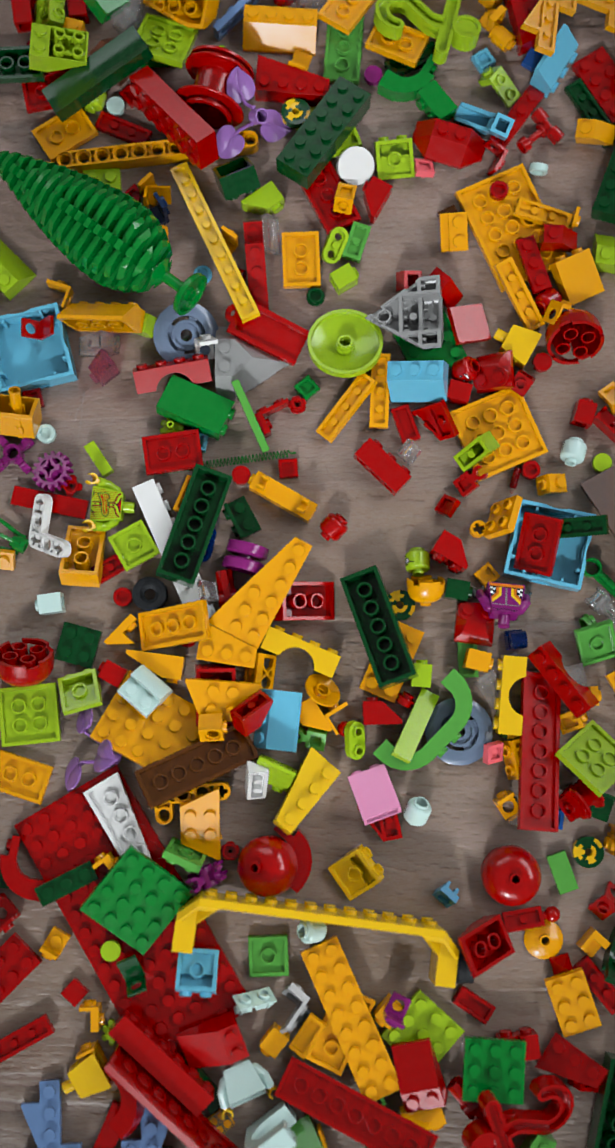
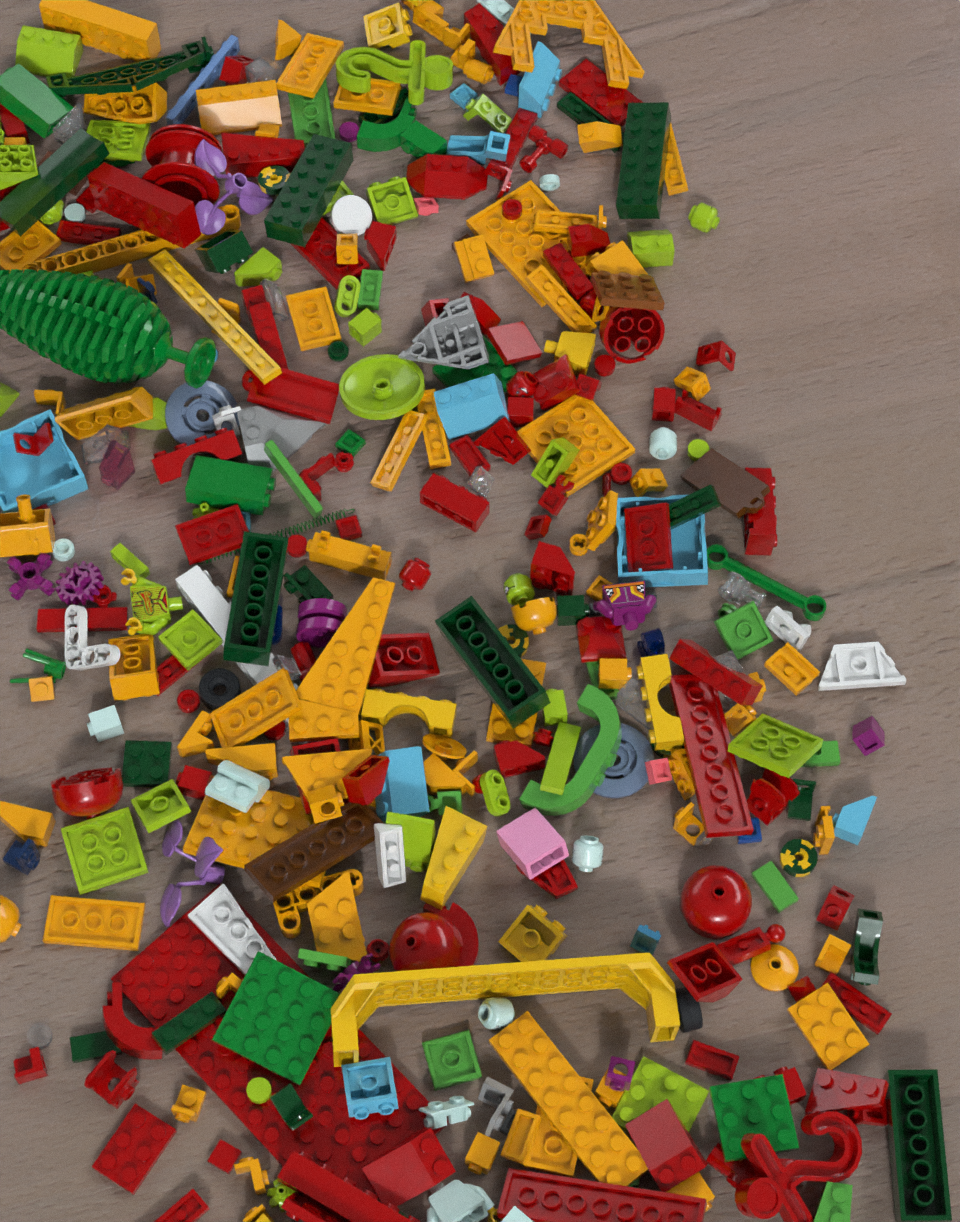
camera: 10 degrees left, 20 degrees down
(580, 303) = (627, 290): none -> dark orange plate

